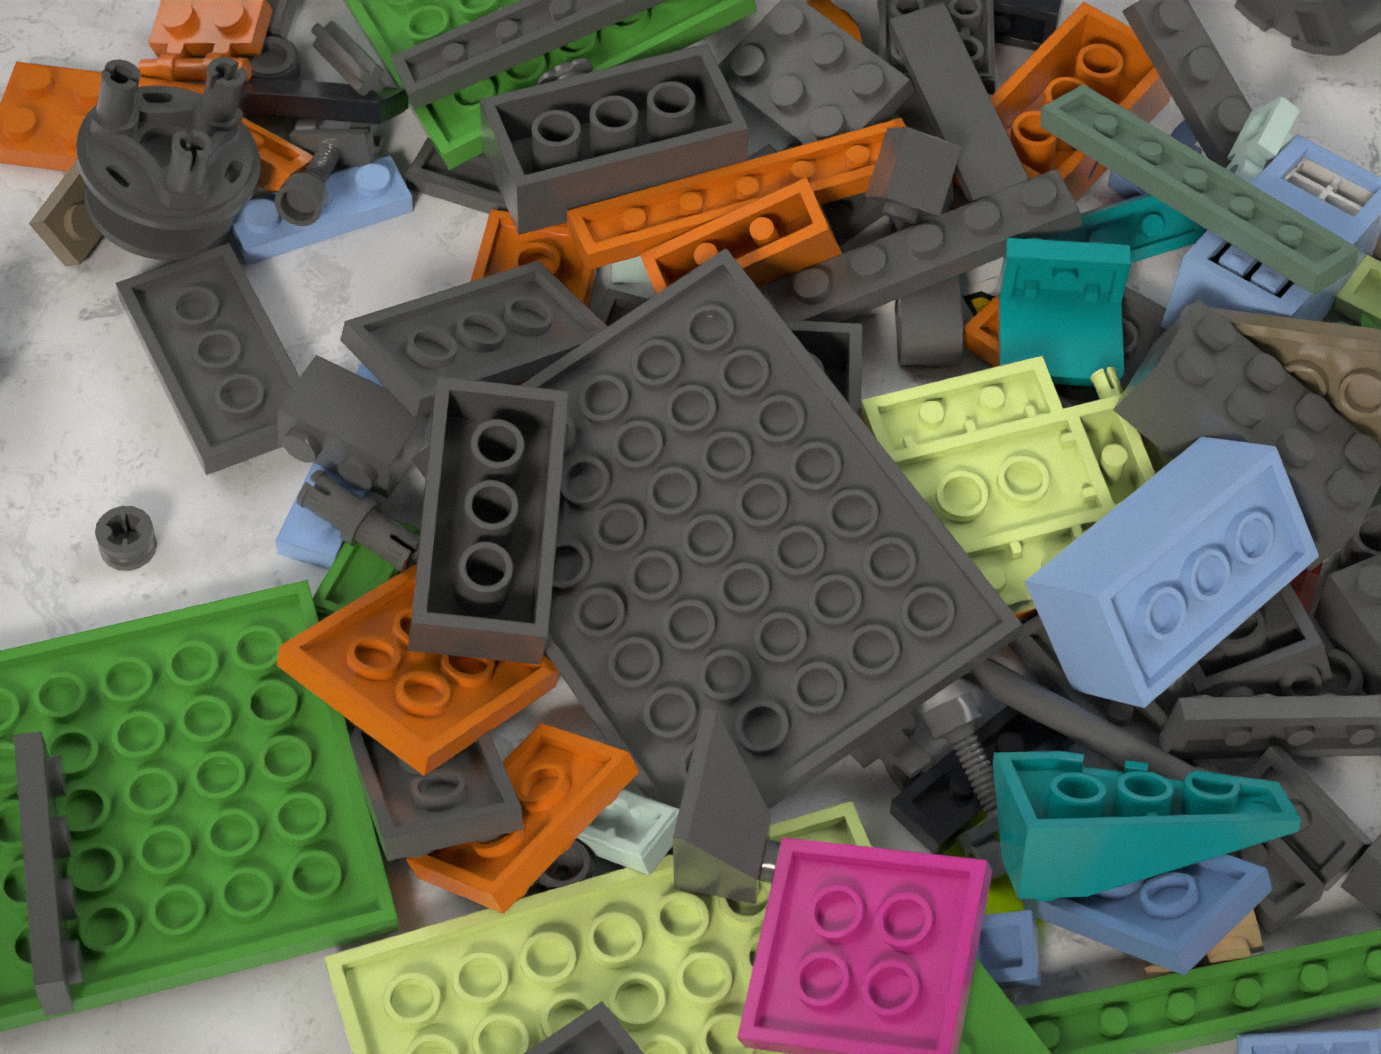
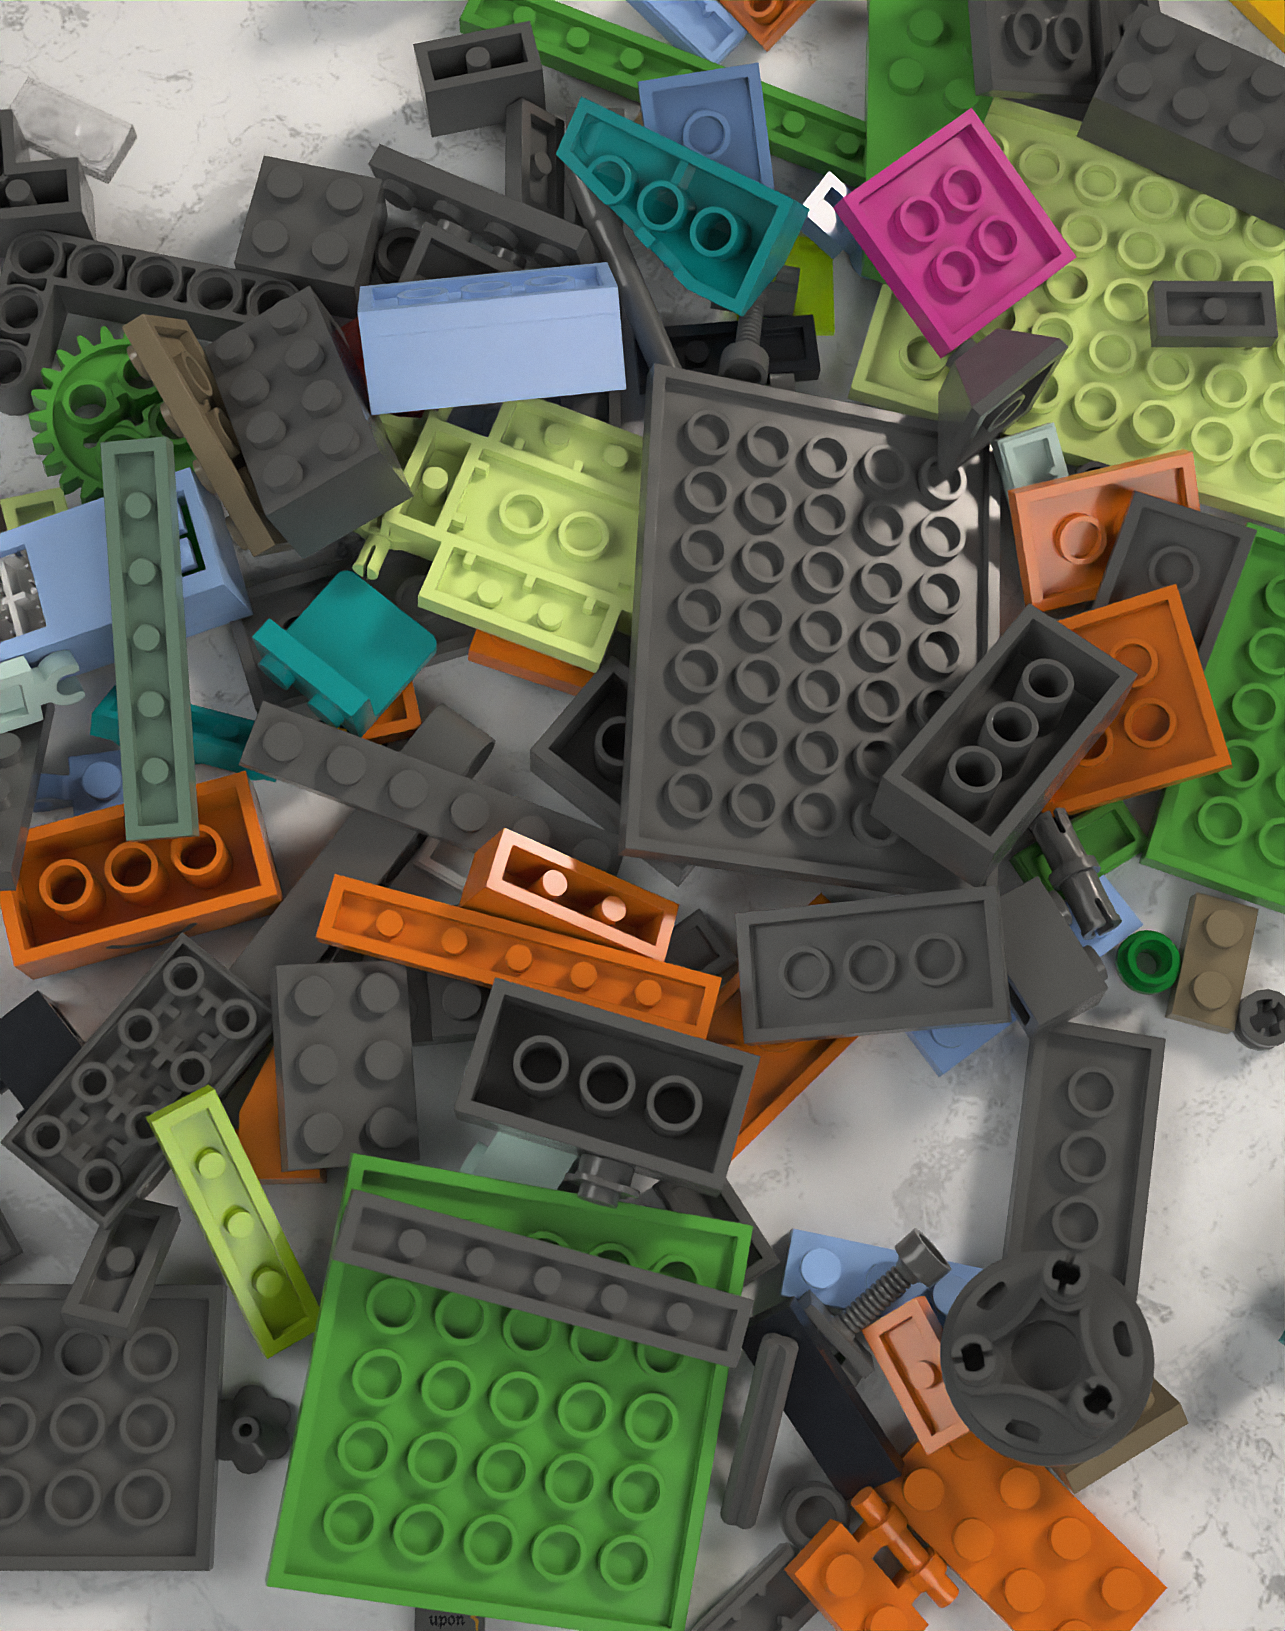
camera: 150 degrees left, 20 degrees up
(195, 551) = (1213, 963): none -> dark tan plate
(247, 508) = (1160, 949): none -> green plate
(912, 174) = (368, 850): dark grey brick -> none
(956, 100) = (252, 912): dark grey tile -> none

